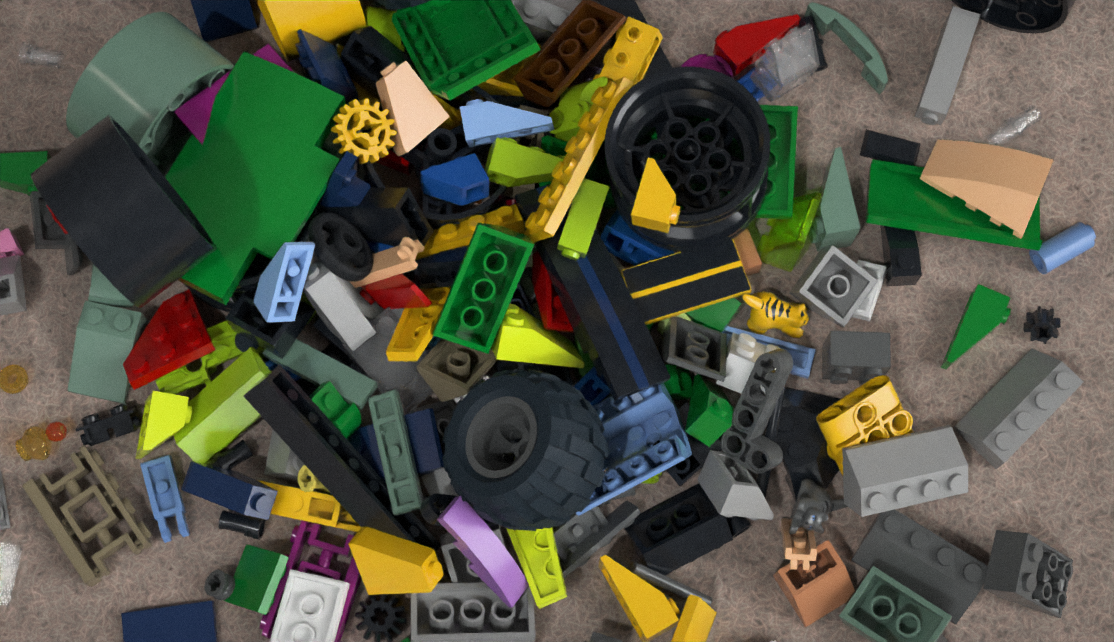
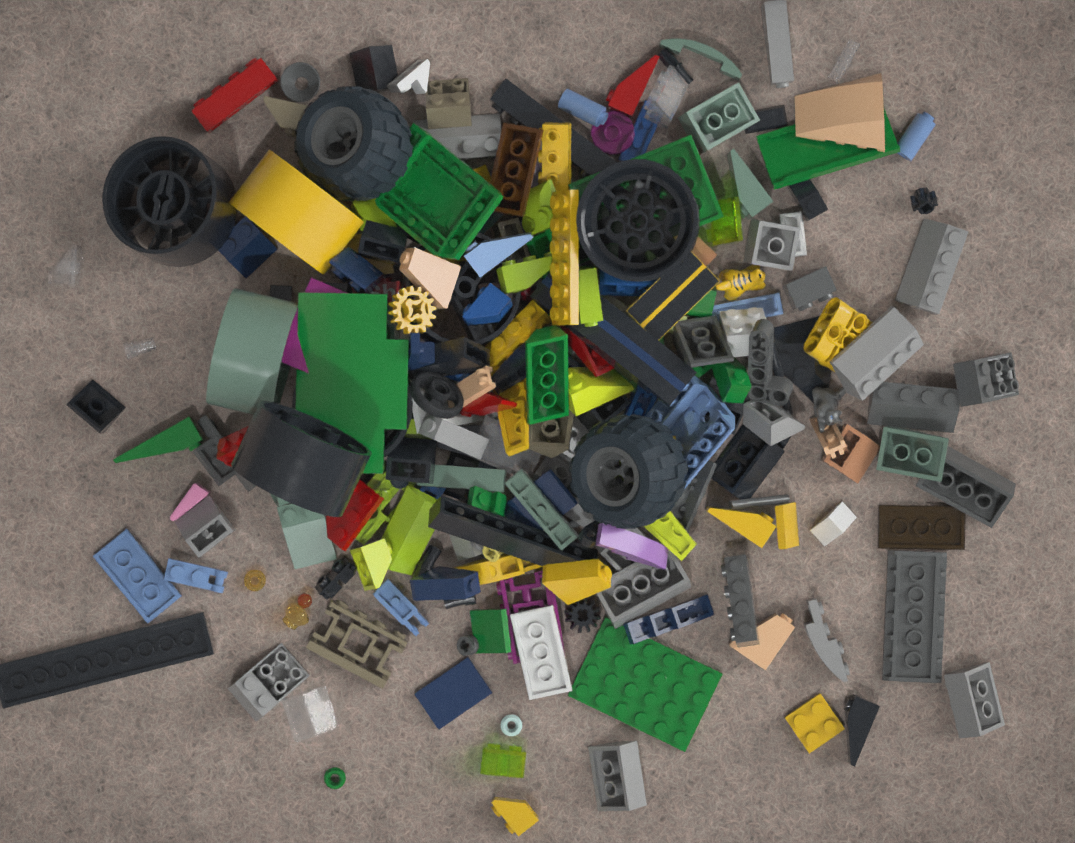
camera: 30 degrees left, 15 degrees up
(283, 282) = (415, 443): light blue slope -> none
(655, 201) = (637, 274): yellow slope -> none
(684, 34) = (583, 108): none -> medium blue brick
(837, 118) = (719, 118): none -> sand green slope
(980, 318) = (880, 216): green slope -> none

